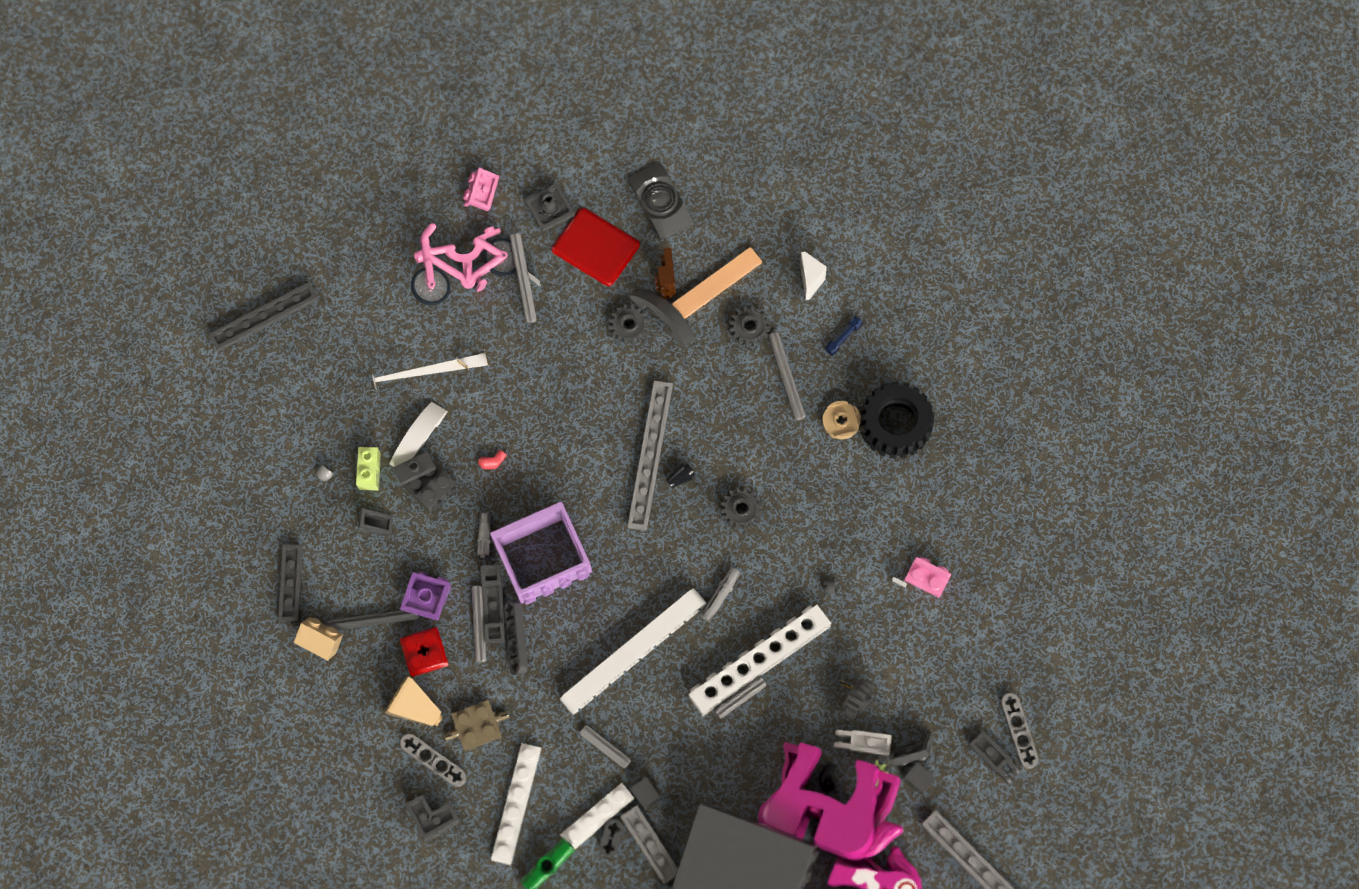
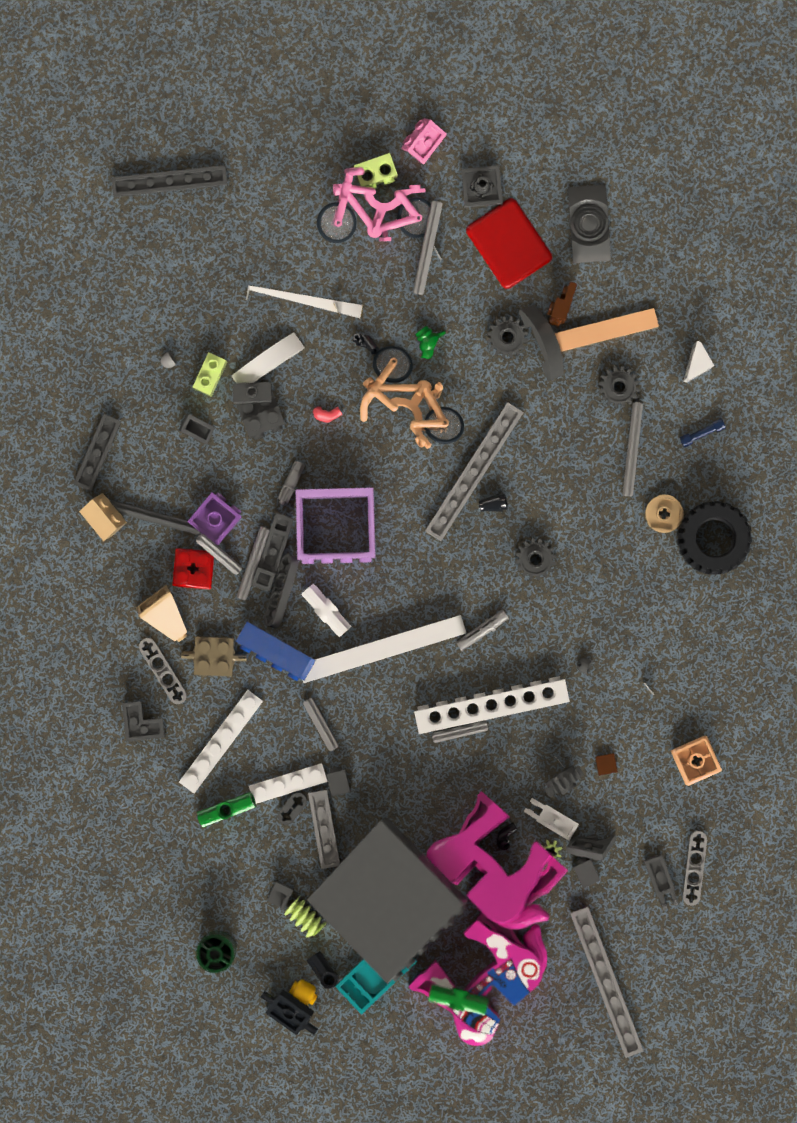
camera: 20 degrees right, 15 degrees up
(442, 626) = (219, 554): none -> light grey axle
(445, 227) = (374, 166): none -> yellowish green brick
(501, 382) = (365, 341): none -> black arm
(533, 693) = (276, 651): none -> blue brick
(537, 391) = (394, 366): none -> piece
(558, 358) = (428, 341): none -> green animal
(566, 637) = (326, 610): none -> white piece
(891, 669) = (606, 764): none -> reddish brown tile
(927, 576) = (676, 694): bright pink bracket -> none
(986, 630) = (707, 765): none -> light nougat brick

